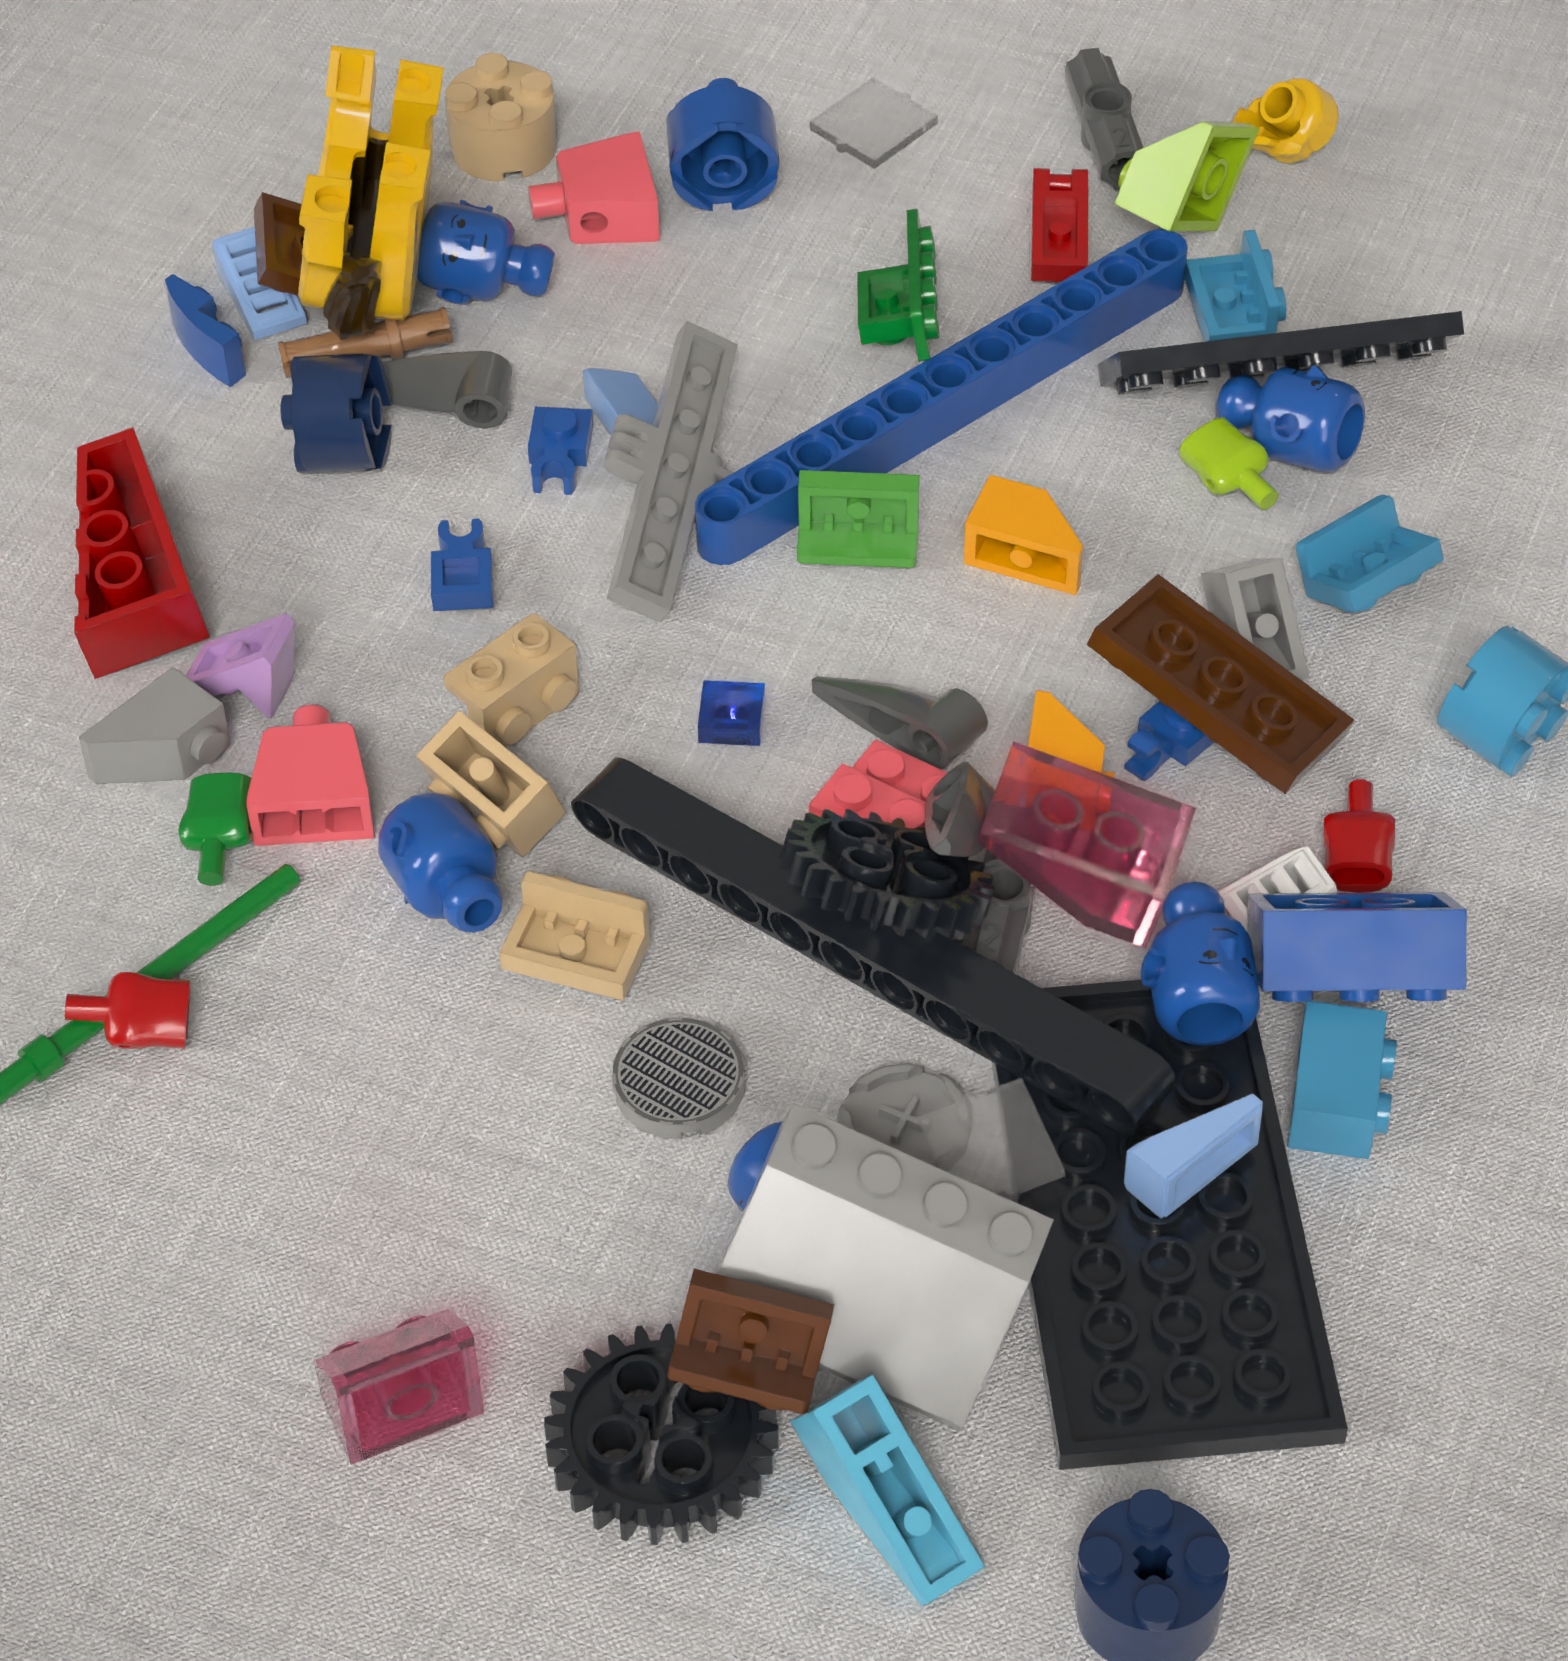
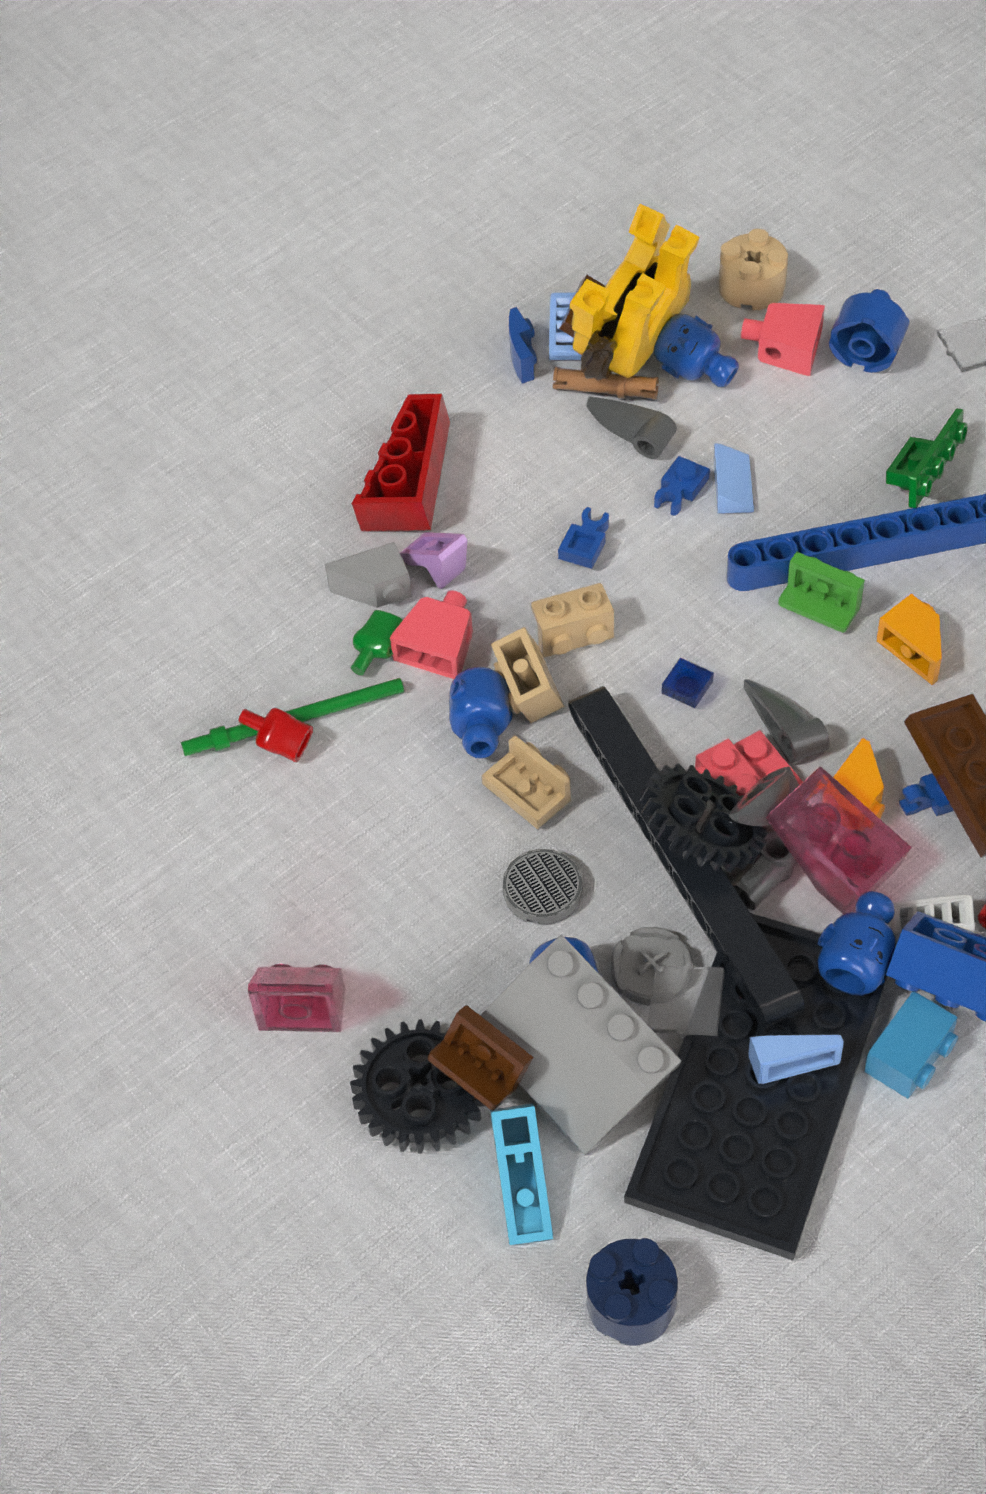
camera: 30 degrees right, 5 degrees up
(338, 413) = (562, 422): dark blue brick -> none
(670, 468) = (730, 521): light grey hinge -> none

